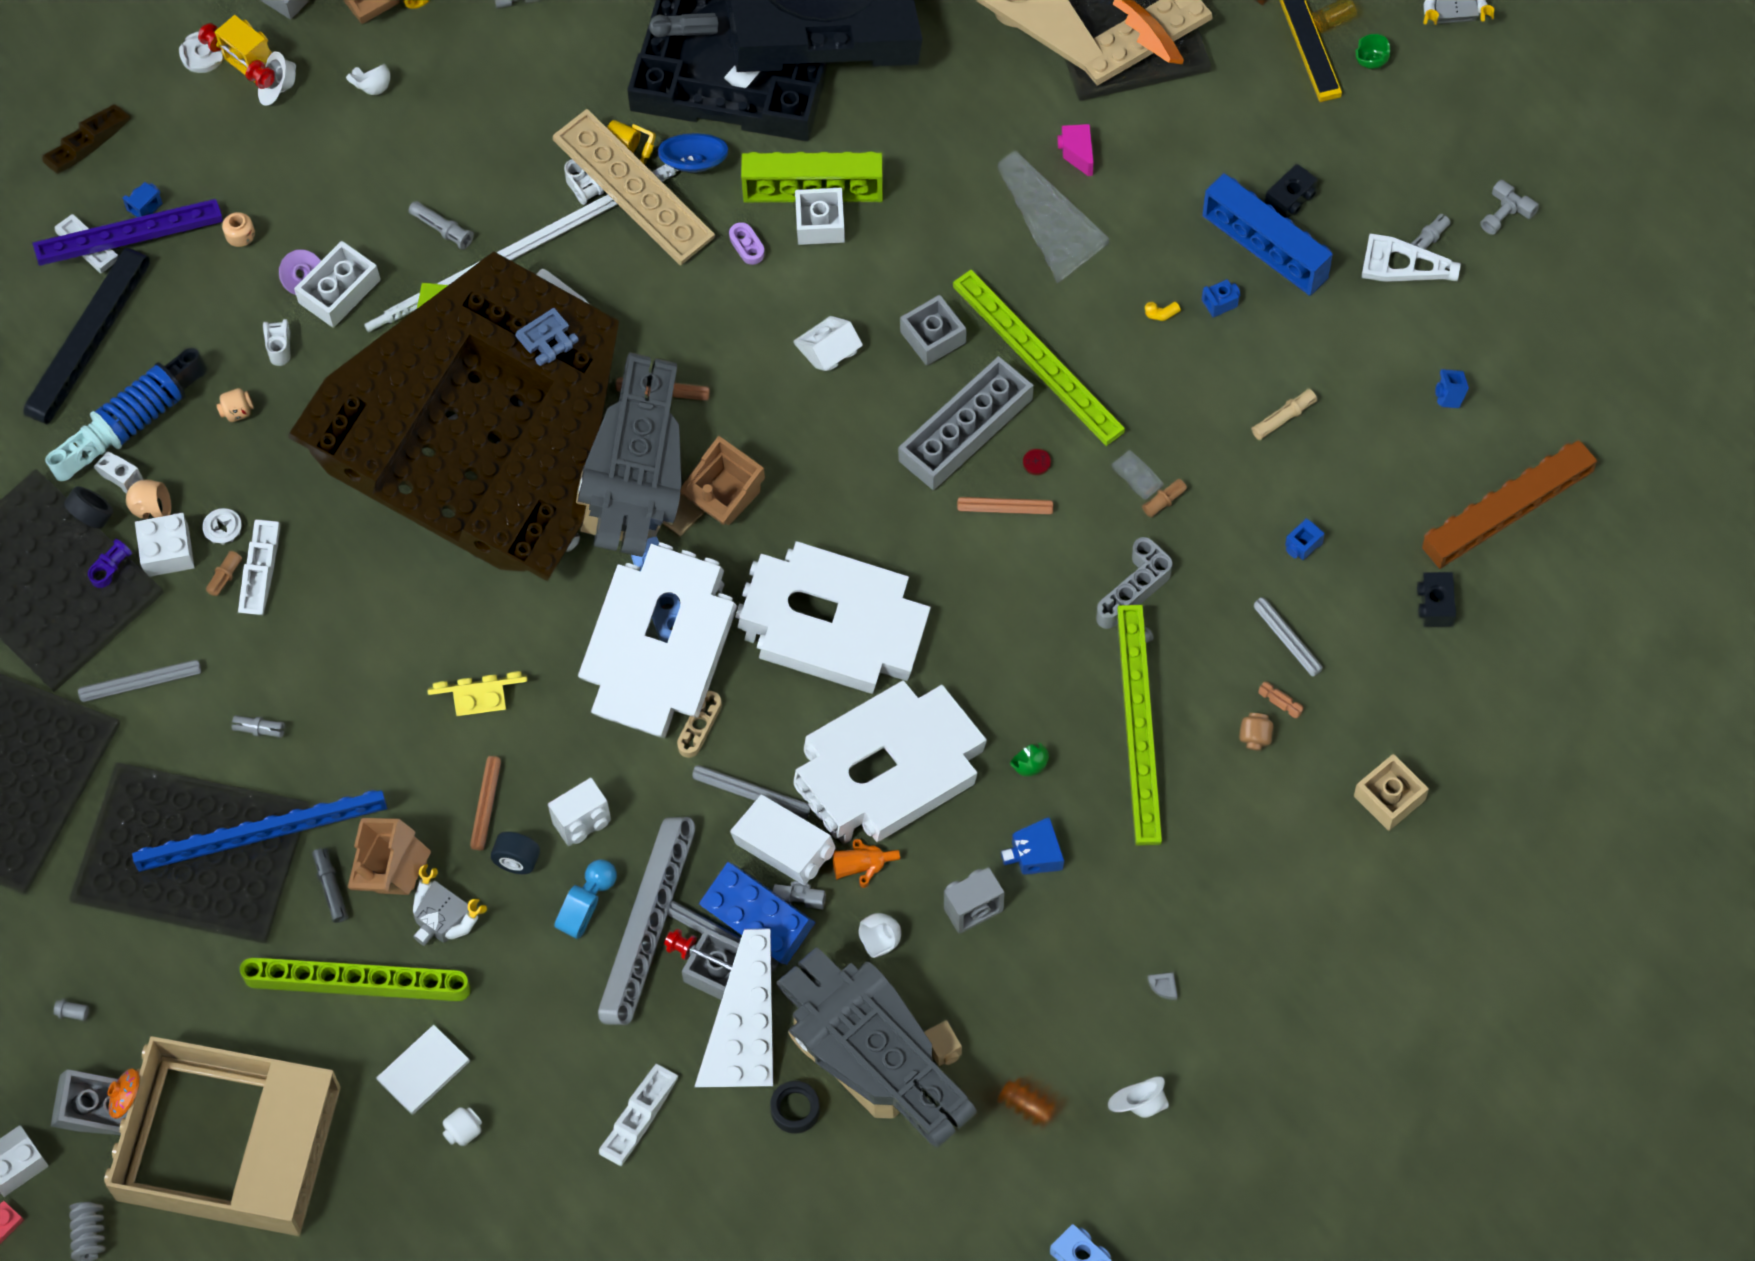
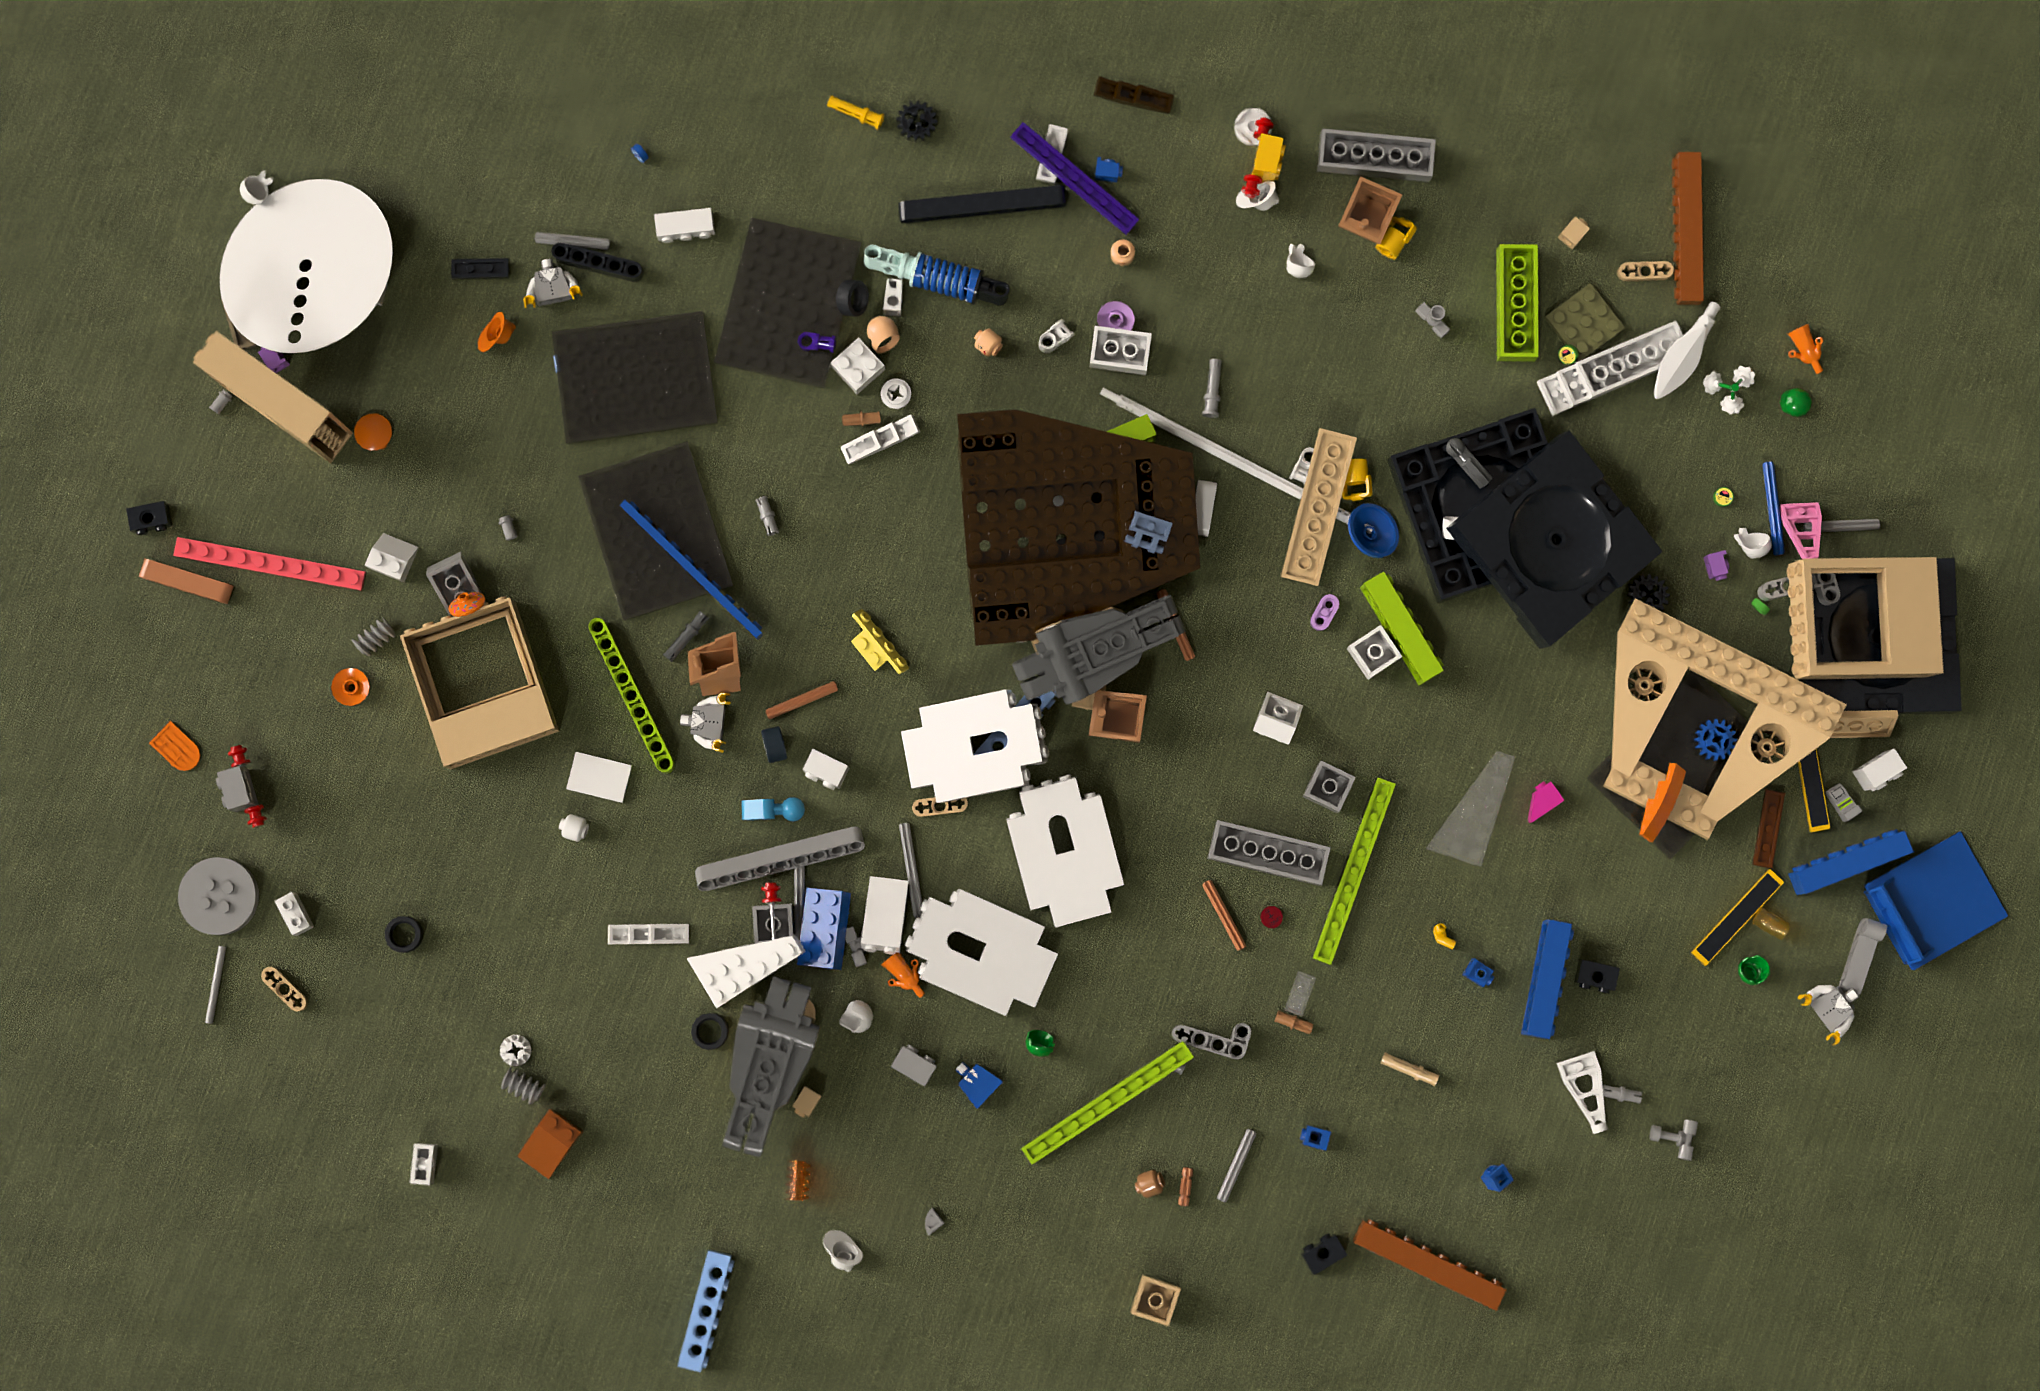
camera: 55 degrees right, 20 degrees up
(139, 680) = (754, 415): light grey axle -> none

